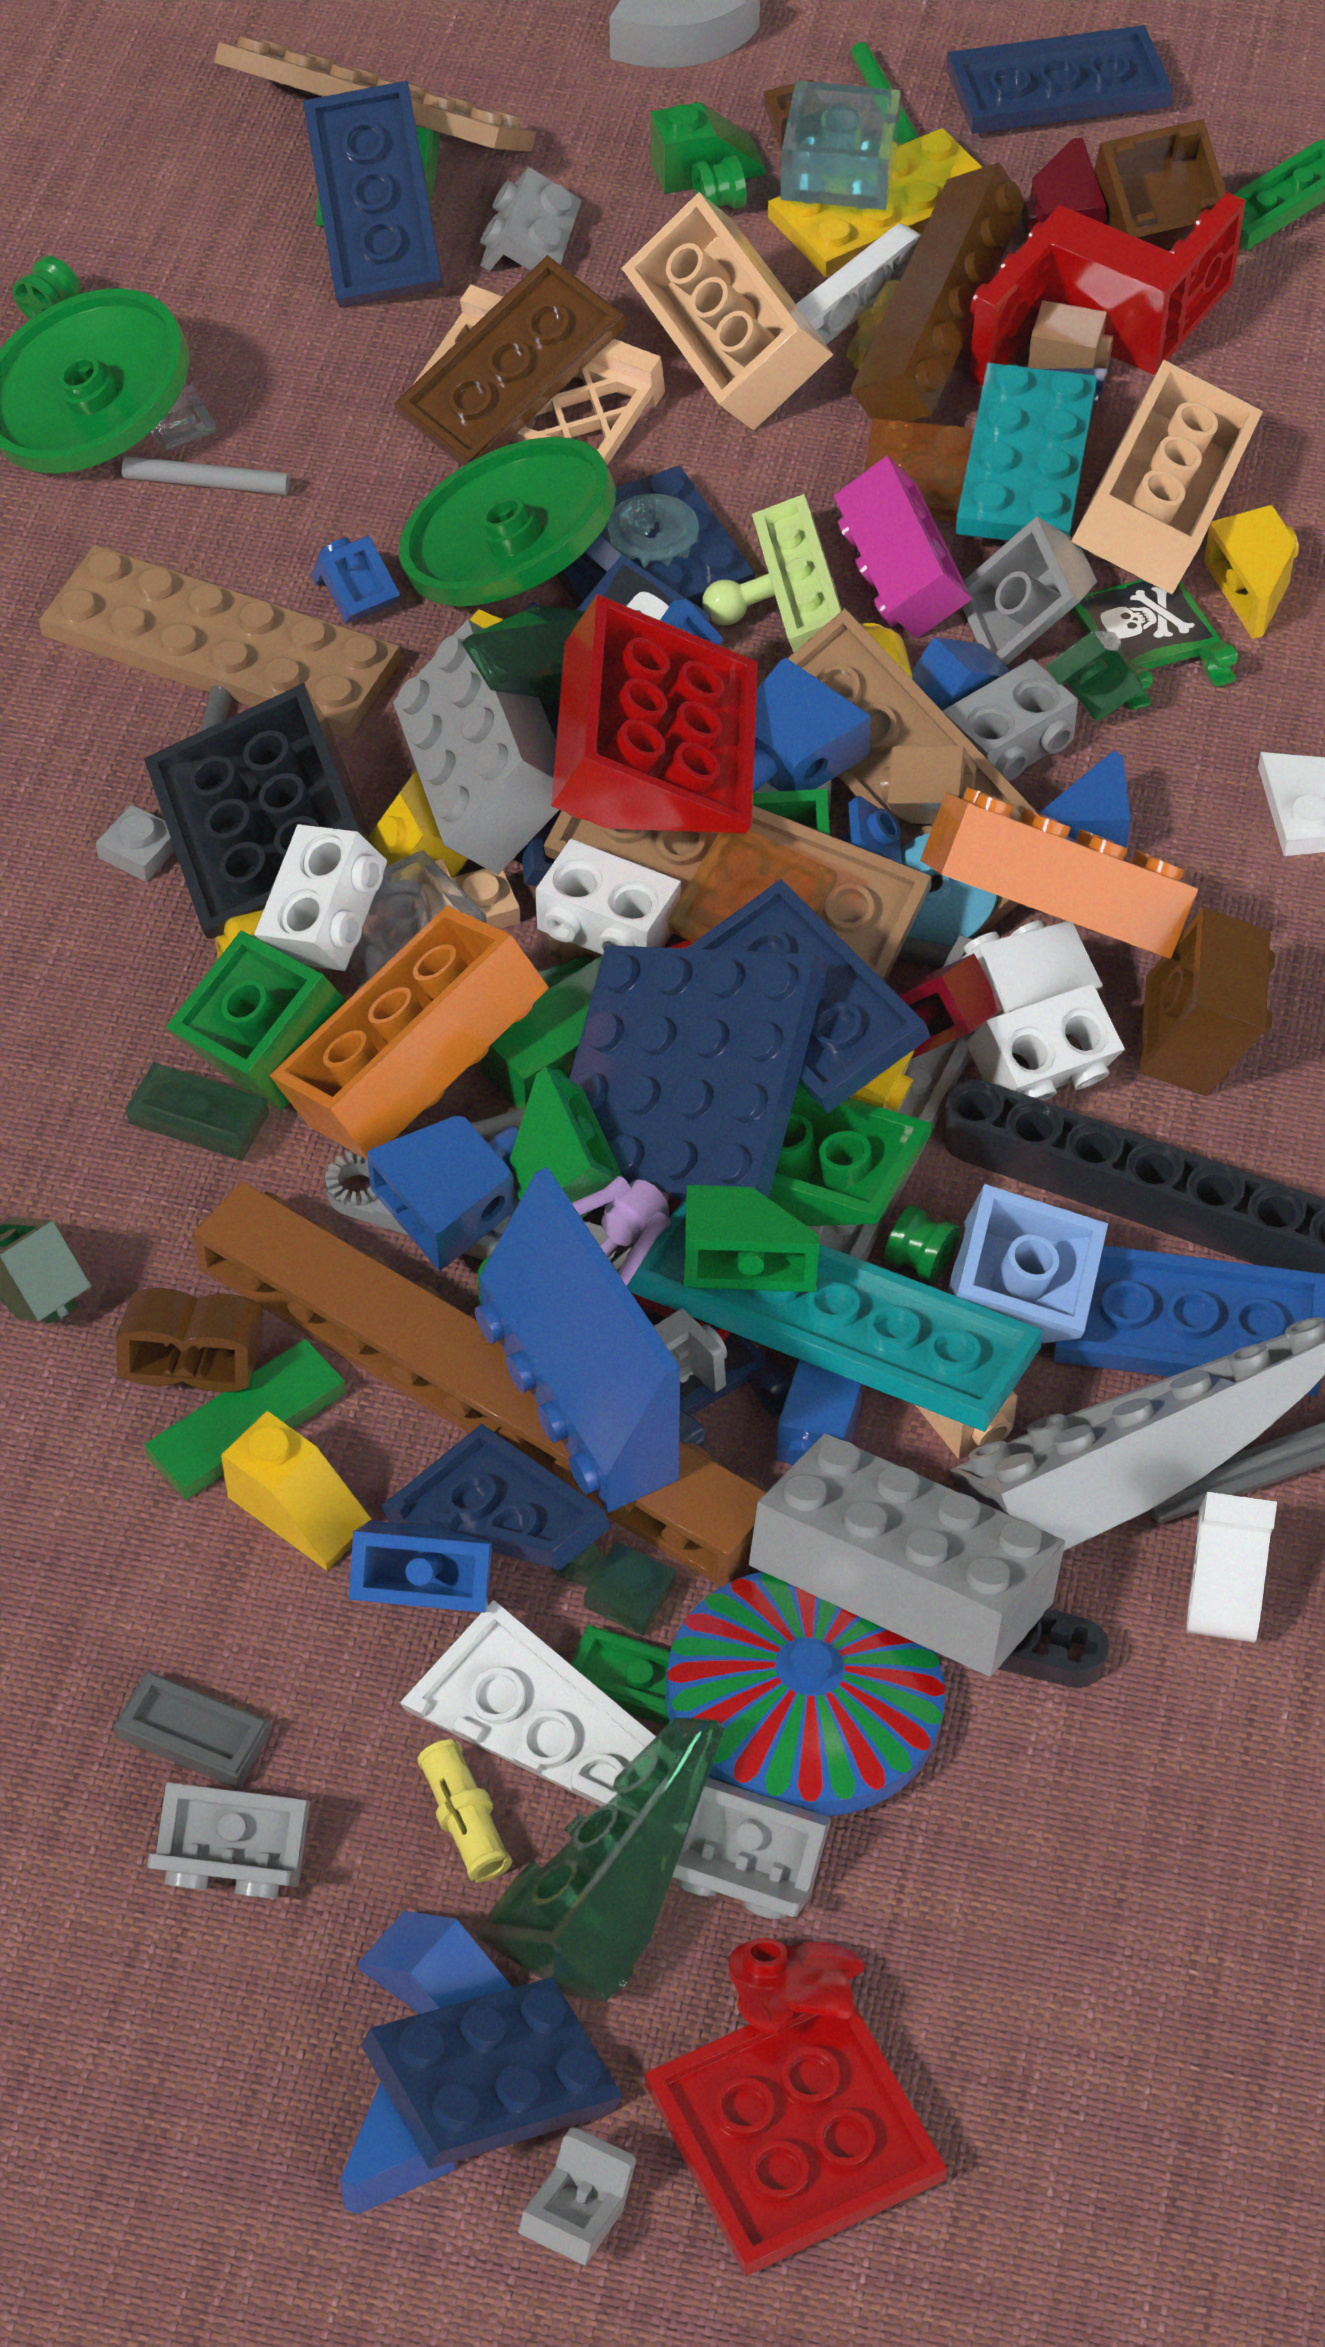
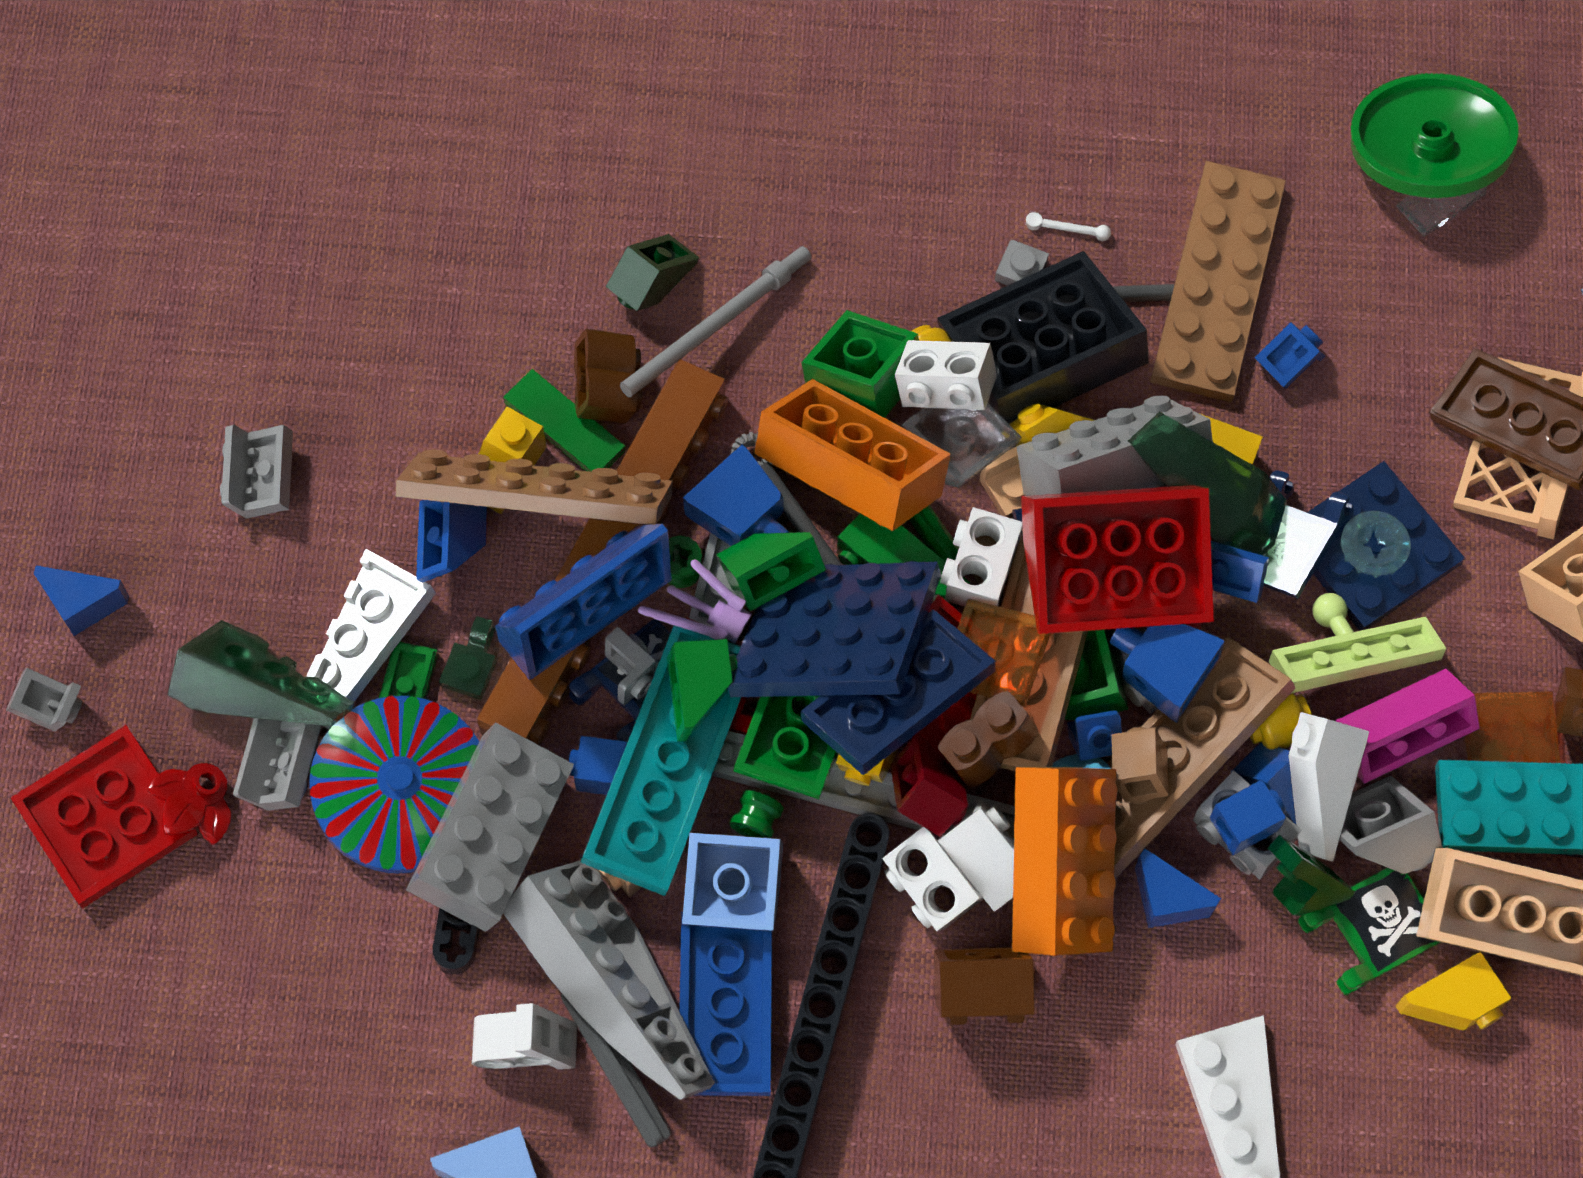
camera: 80 degrees right, 15 degrees up
(48, 285) = (1532, 93): green wheel -> none
(69, 820) = (1034, 222): none -> white hinge
(78, 1125) = (772, 277): none -> light grey bar
(192, 1729) = (340, 438): dark grey tile -> none
(197, 1111) = (794, 339): clear green plate -> none
(206, 475) = (1378, 240): light grey bar -> none
(382, 1414) = (535, 488): none -> medium nougat plate
(431, 1963) = (186, 602): blue slope -> none
(464, 1810) = (297, 598): light yellow pin -> none
(490, 2071) = (113, 636): dark blue plate -> none
(501, 1497) = (507, 576): dark blue wing -> none
(507, 521) = (1356, 442): green dish -> none
(879, 918) = (981, 744): none -> reddish brown brick
(974, 616) = (1323, 776): none -> white slope
(1019, 691) = (1248, 816): none -> blue brick

